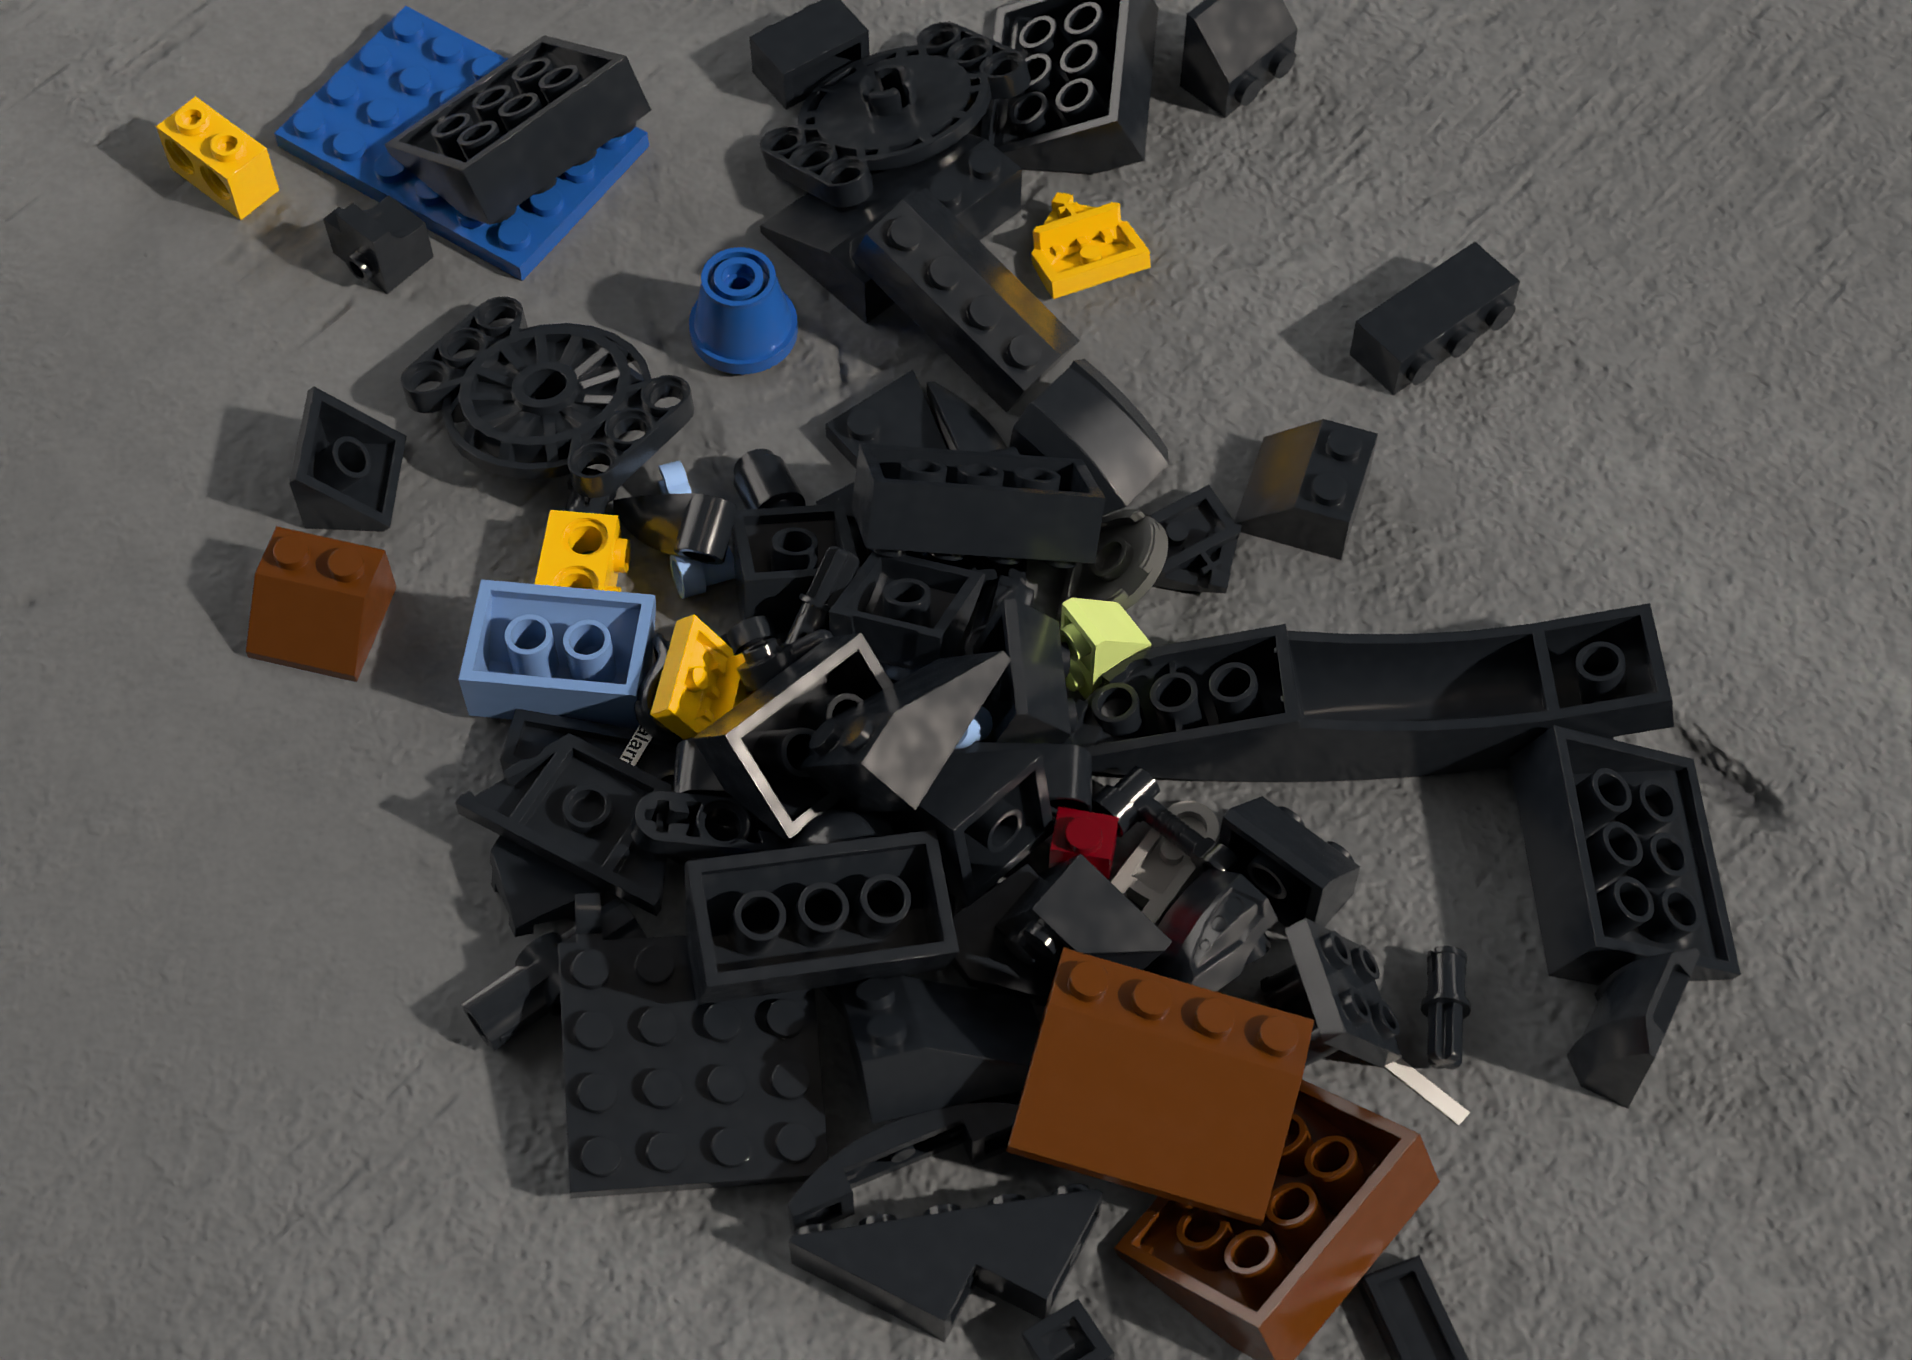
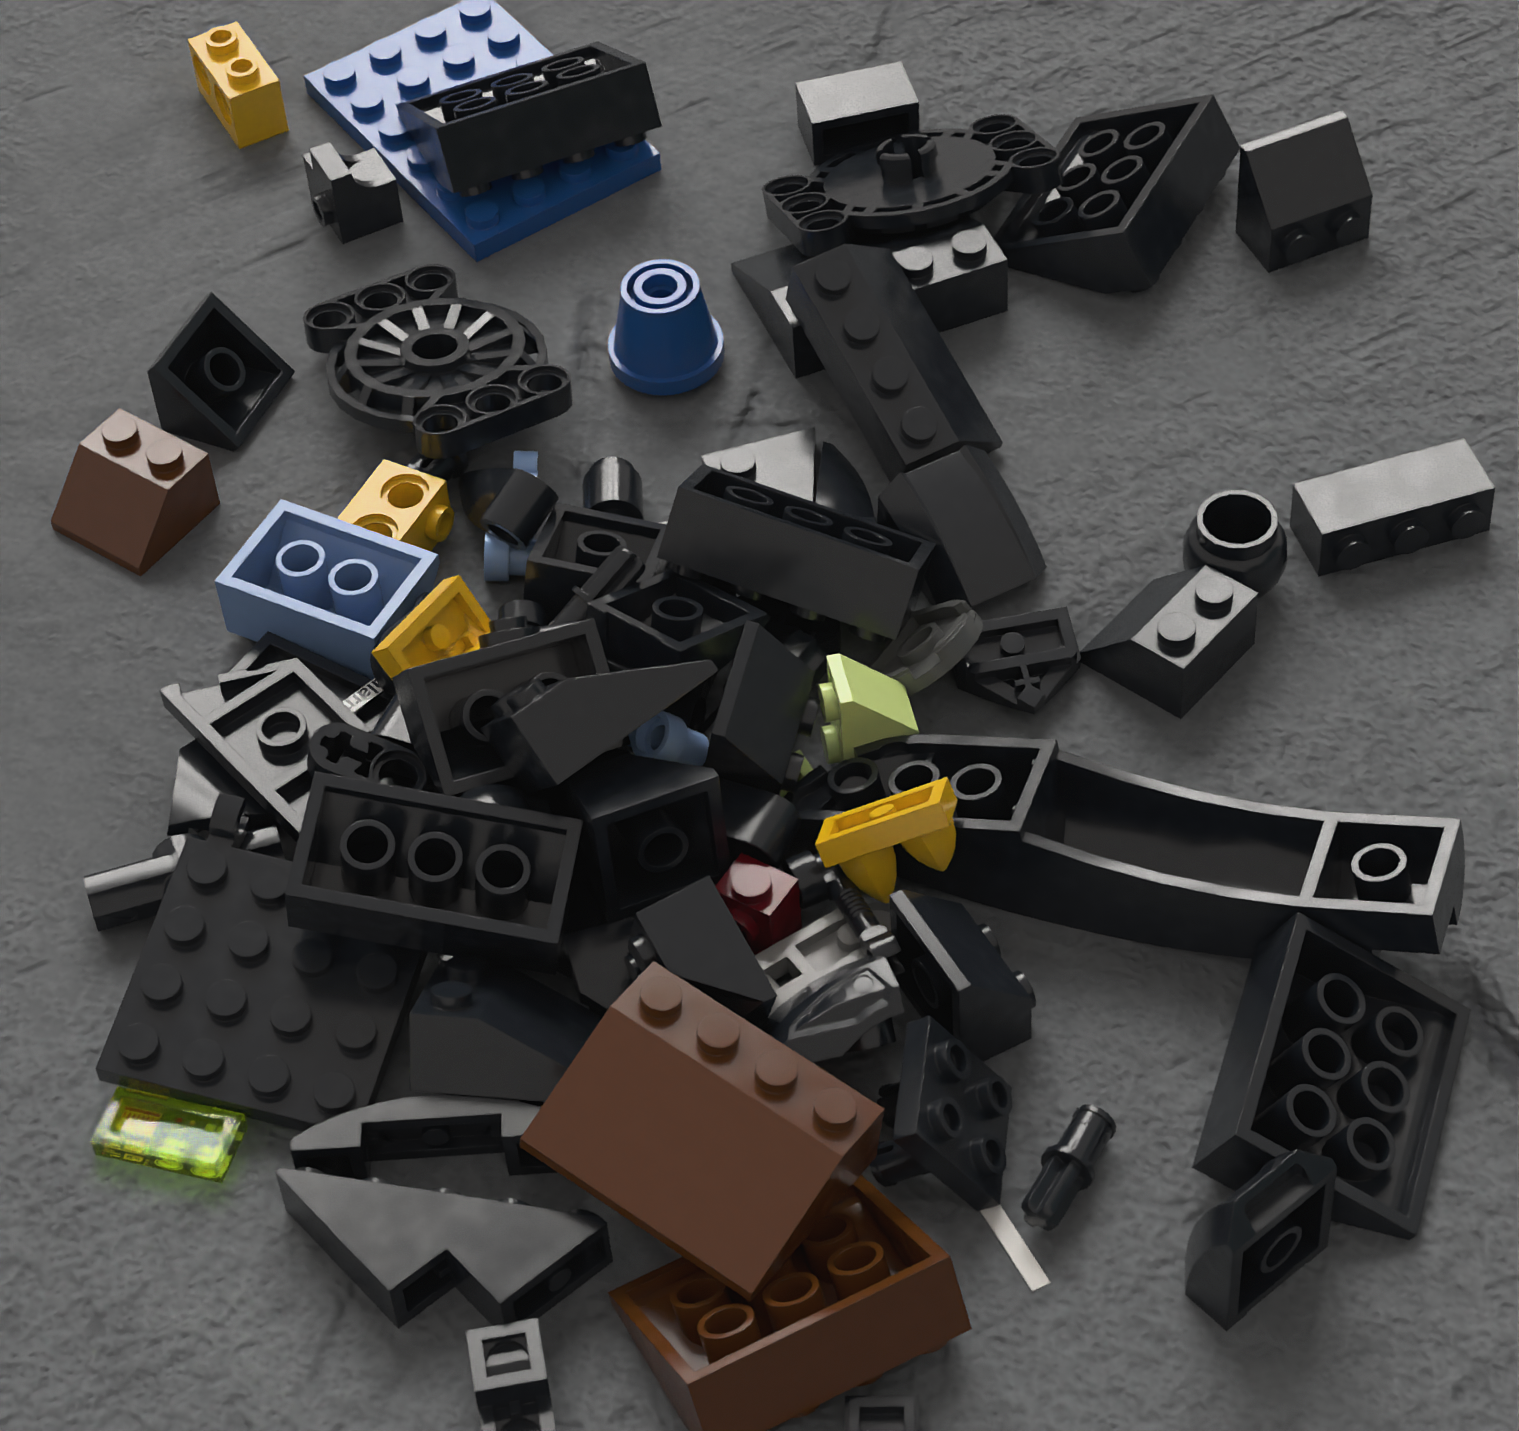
camera: 25 degrees right, 10 degrees down
(654, 1227) = (169, 1134): none -> clear neon green tile
(1085, 246) = (1053, 356): yellow slope -> none
(1165, 760) = (865, 836): none -> yellow tile
(1332, 385) = (1238, 537): none -> black piece

